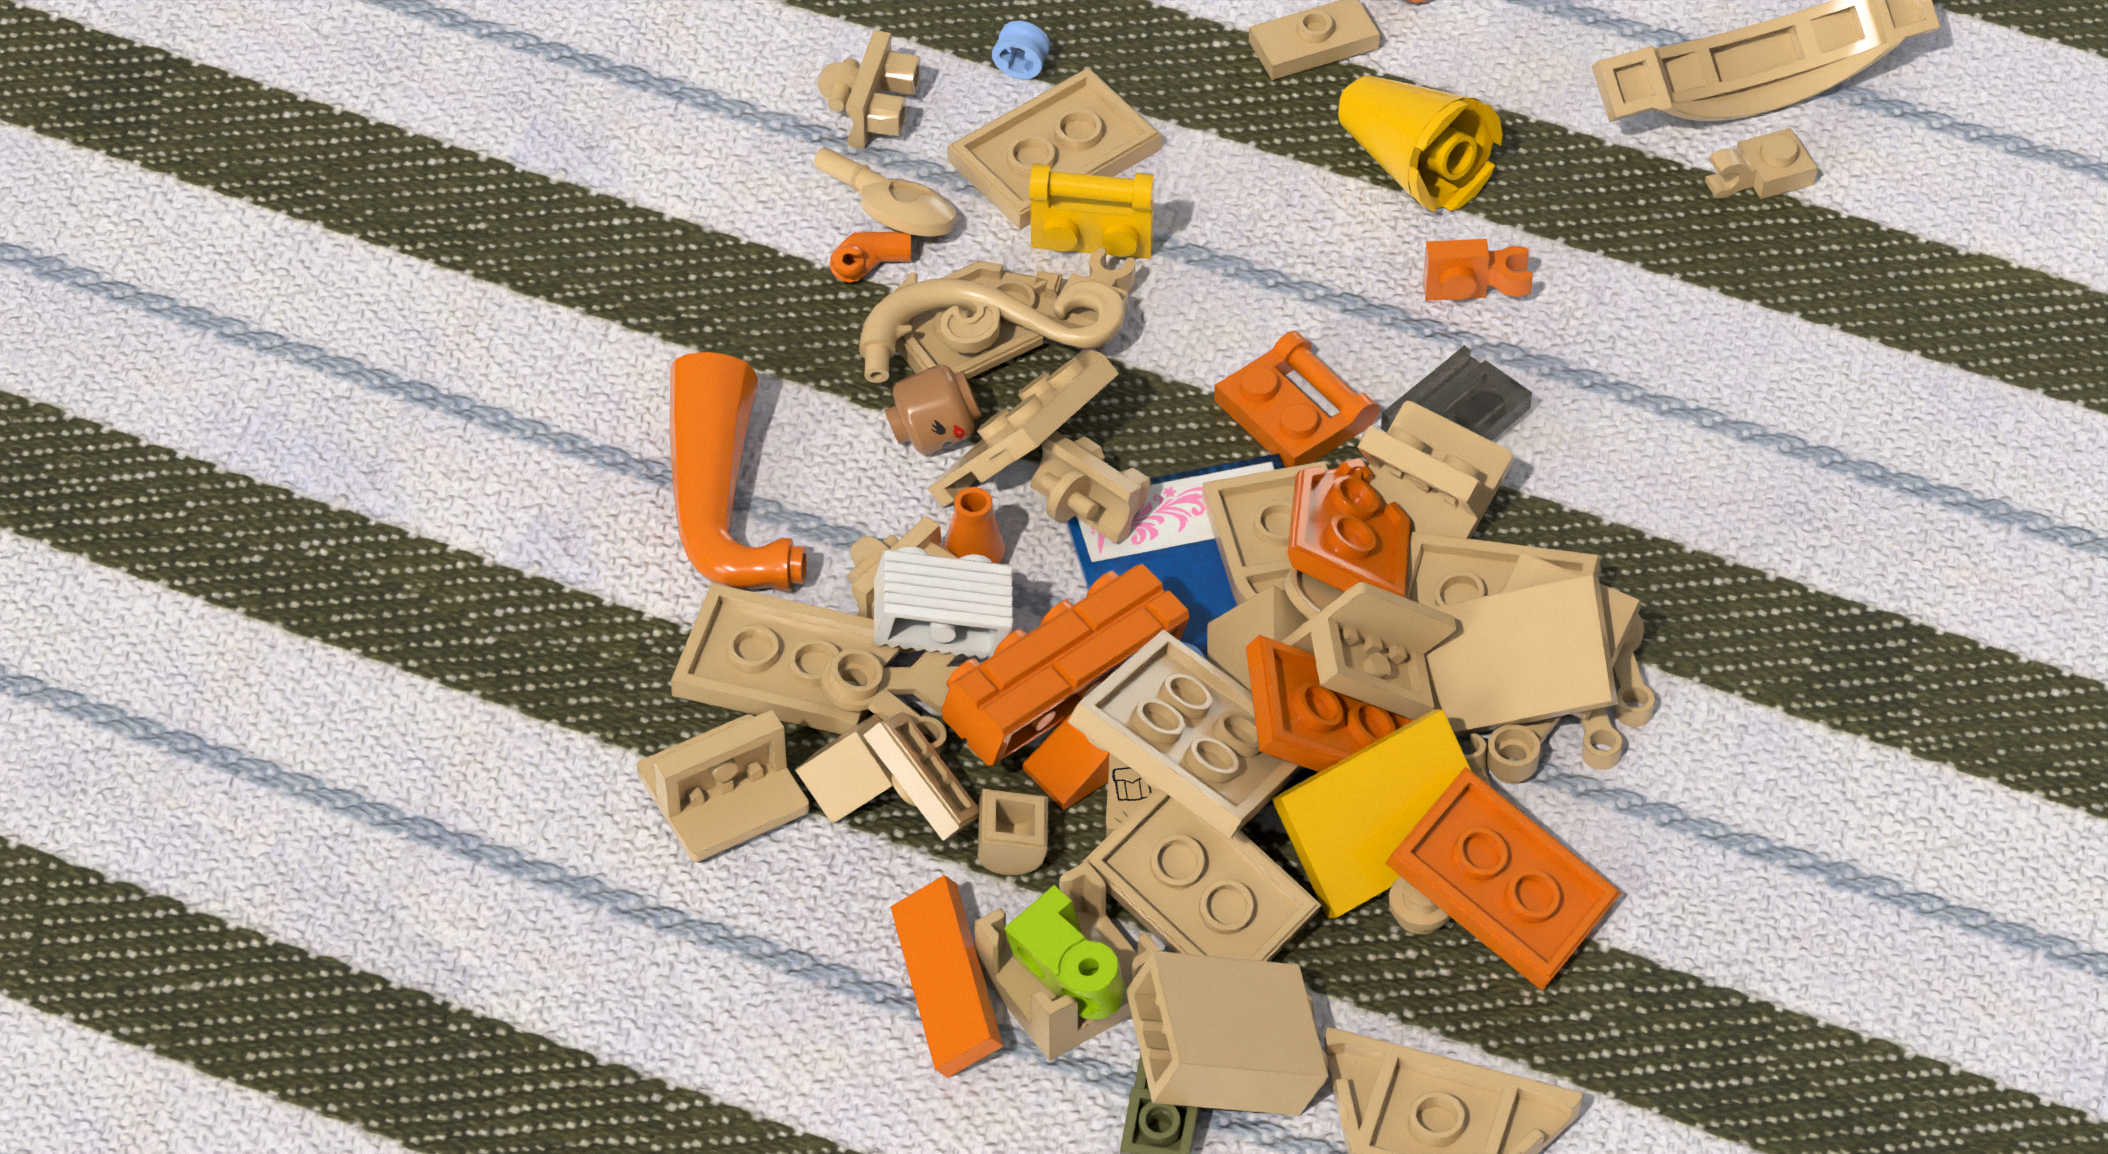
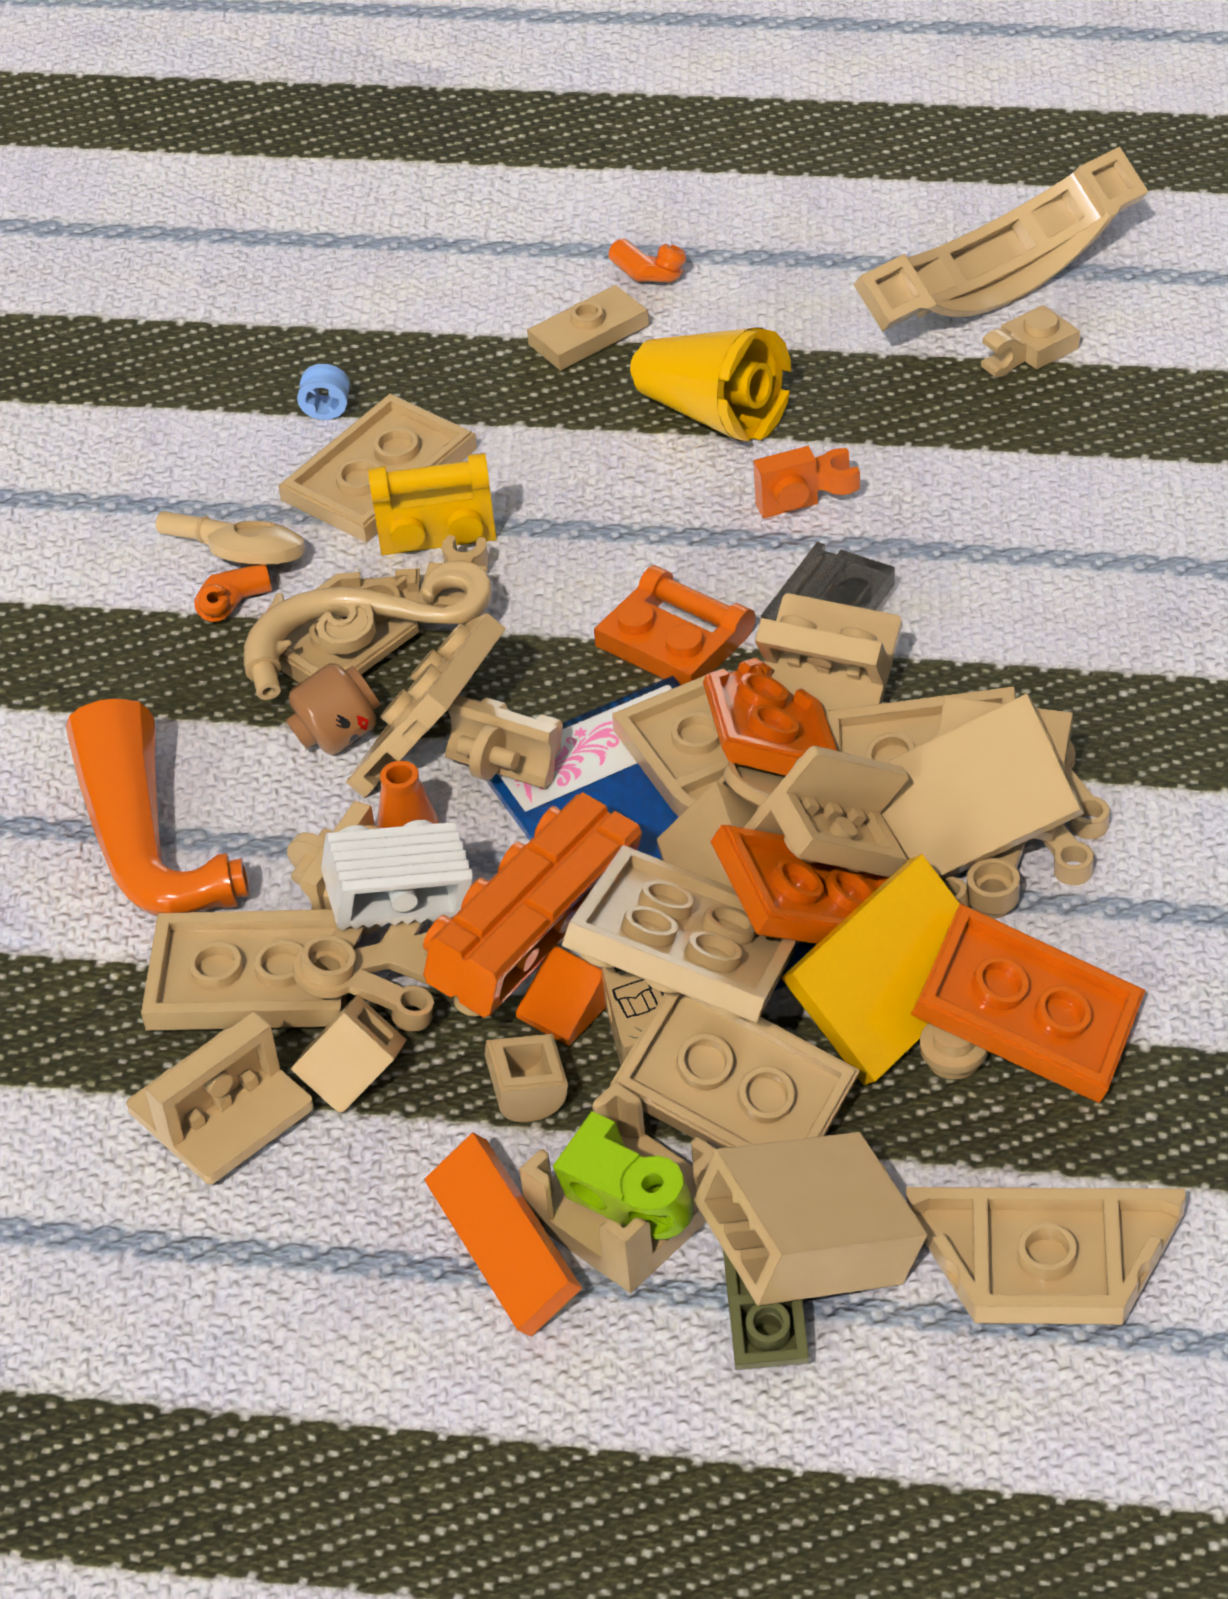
camera: 10 degrees left, 5 degrees down
(864, 89) = (195, 454): tan hips -> none
(922, 775) = (421, 1042): tan plate -> none

